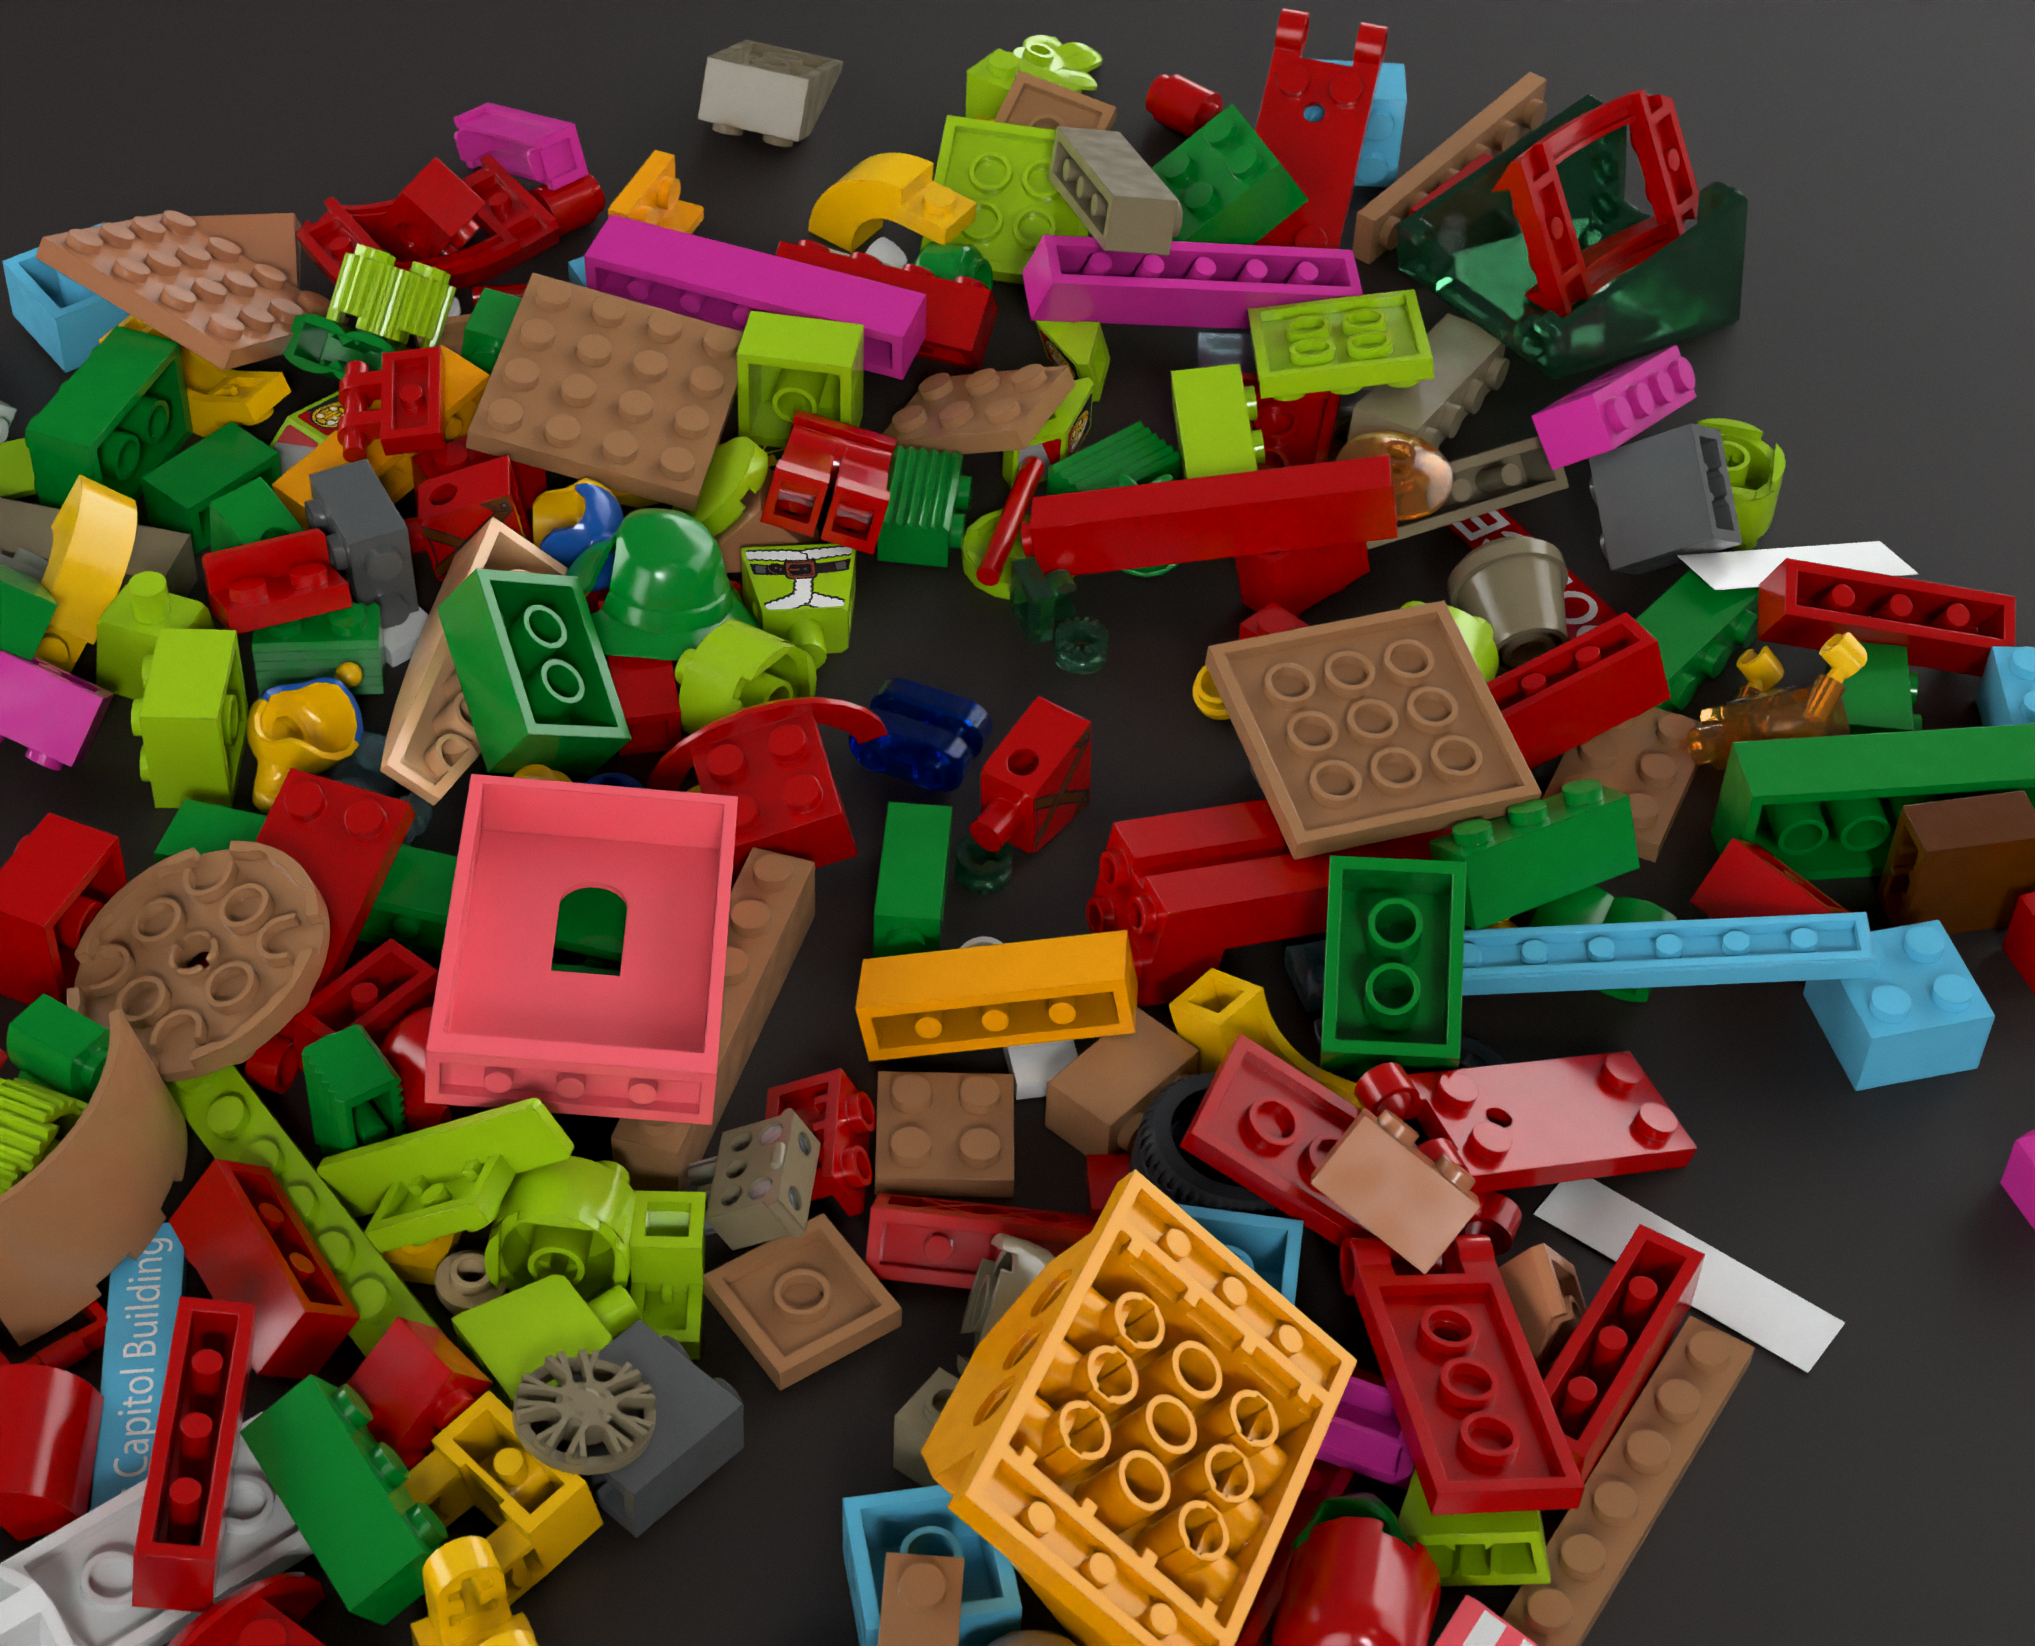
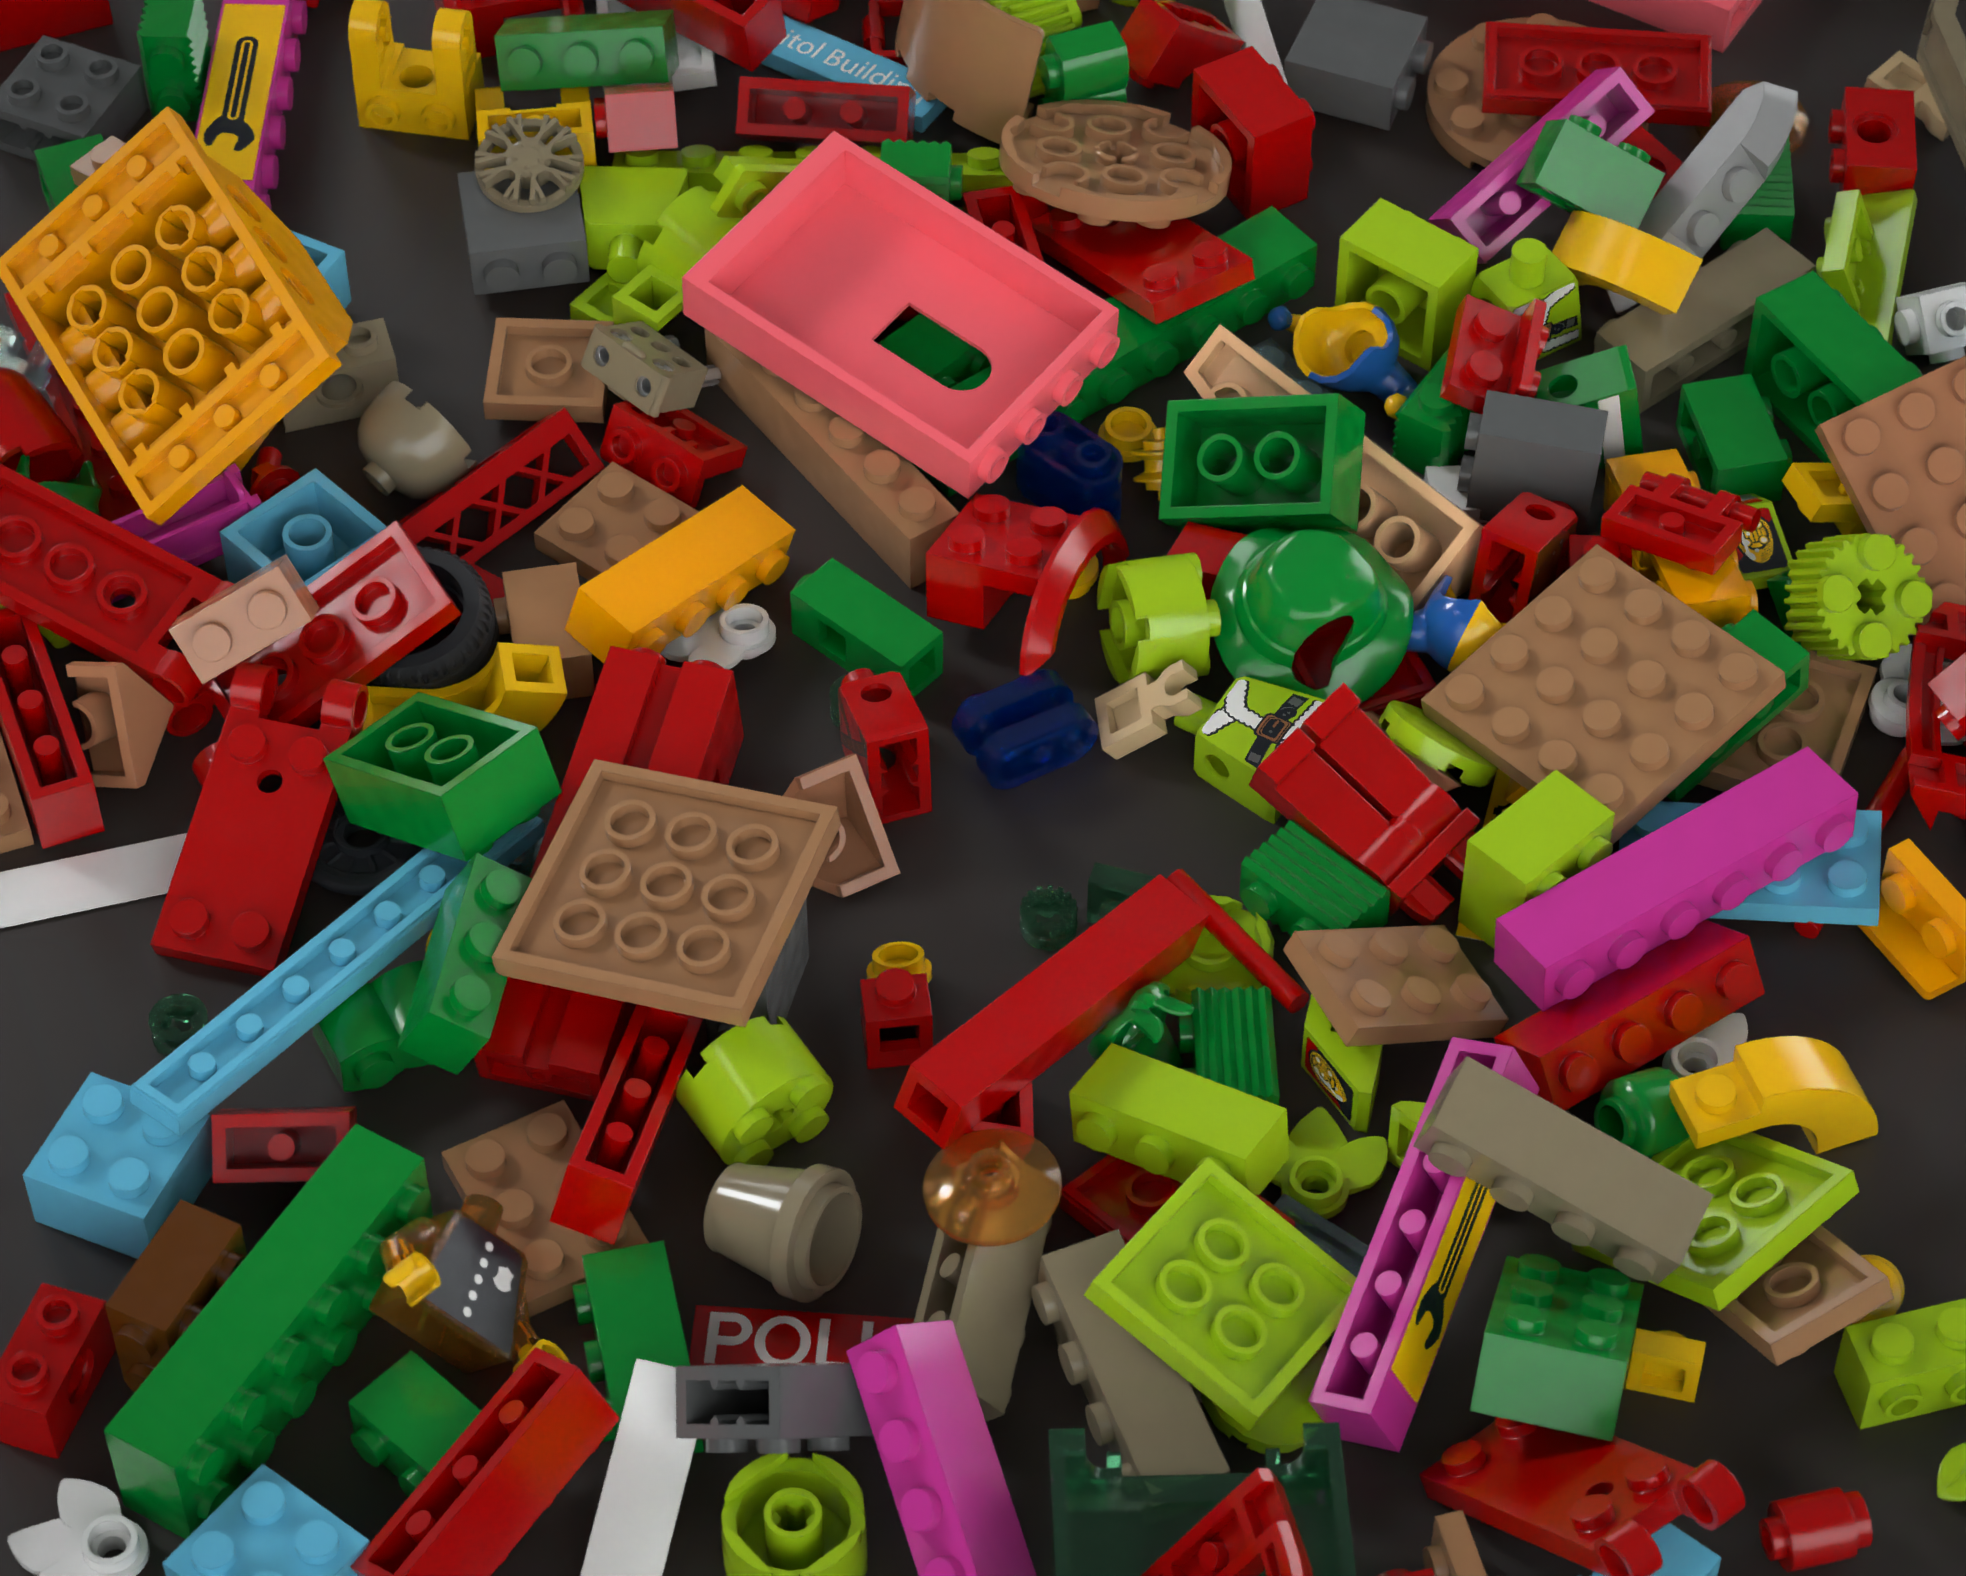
camera: 130 degrees right, 5 degrees up
(840, 669) = (1139, 708): none -> tan plate
(1128, 789) = (860, 849): none -> nougat slope
(1138, 402) = (1329, 1163): none -> lime plate
(1732, 1098) = (177, 1007): none -> clear green bush

